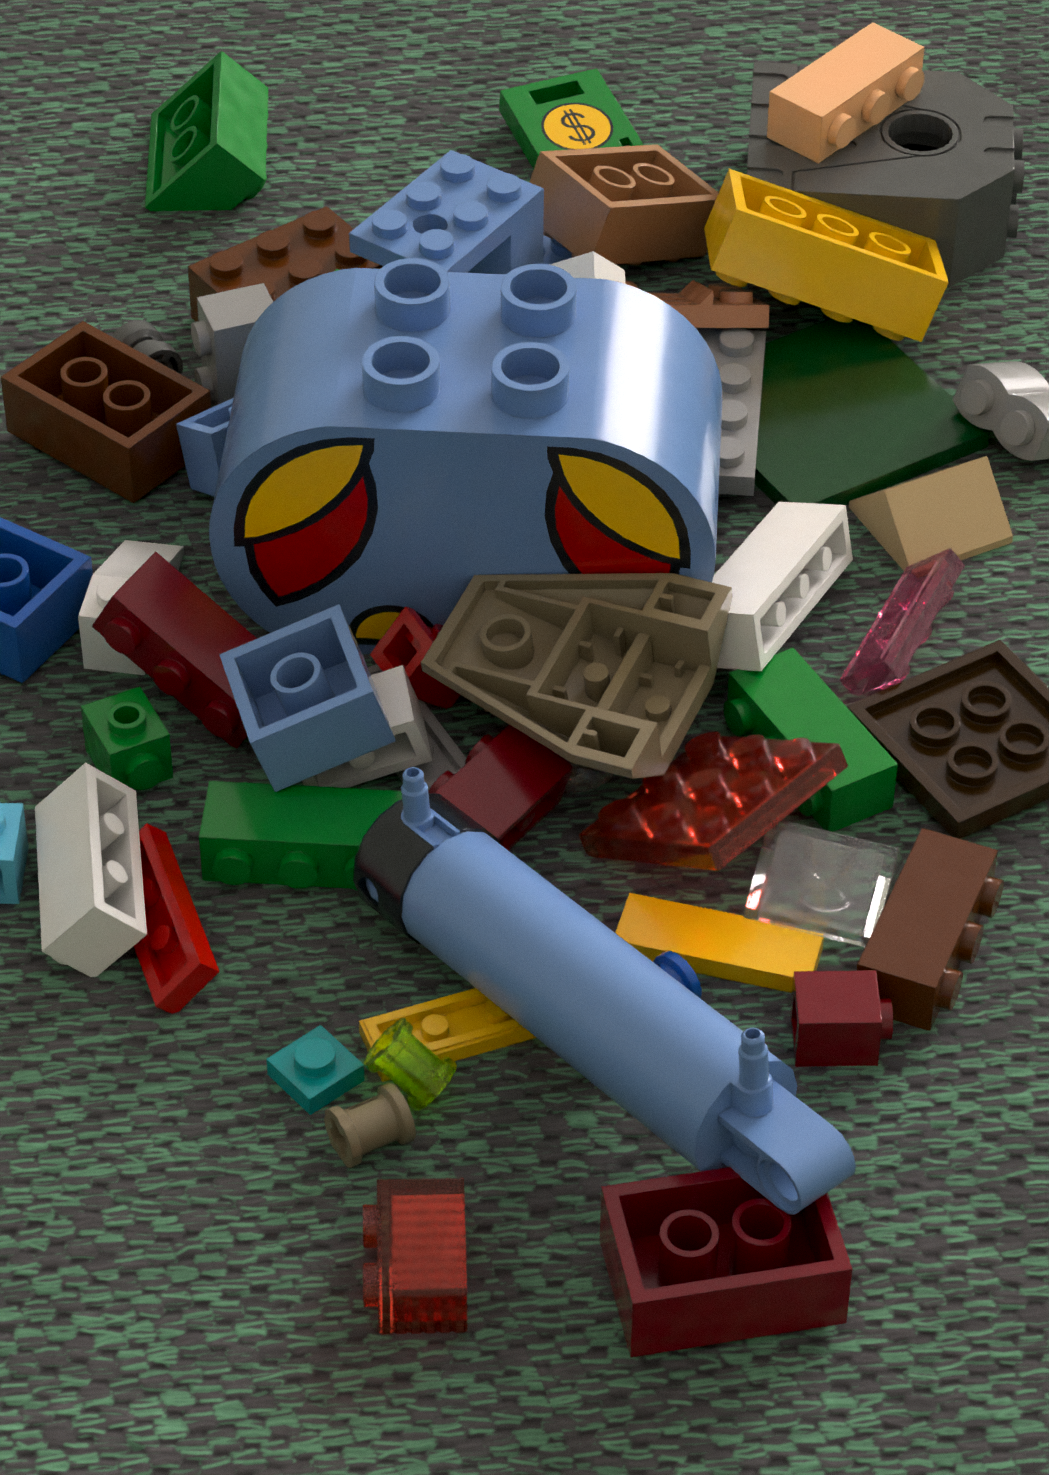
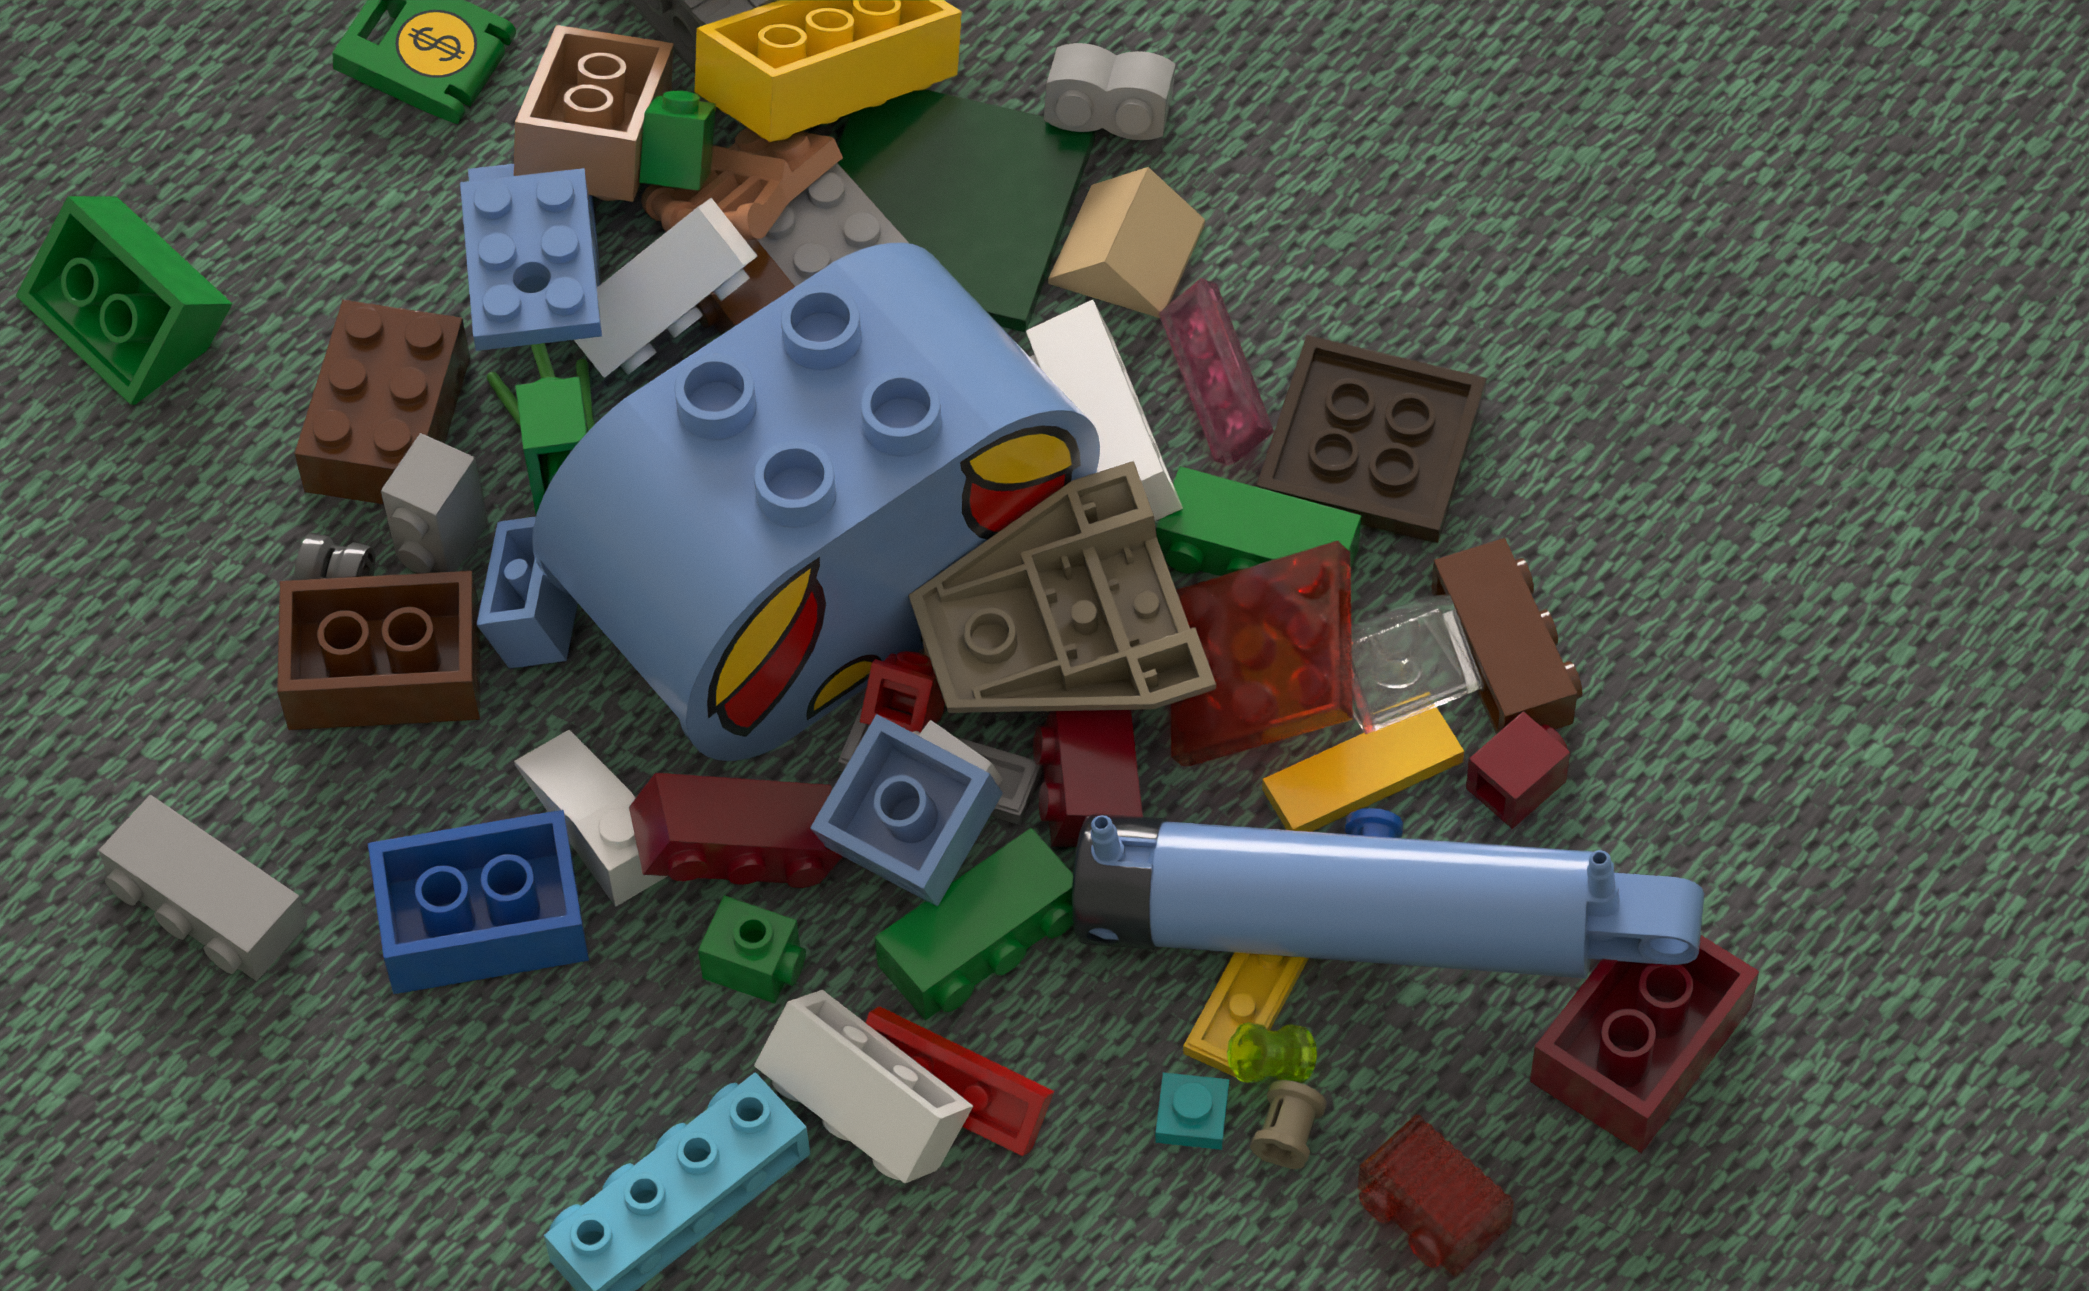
camera: 40 degrees left, 15 degrees up
(656, 245) = (677, 141): none -> green brick

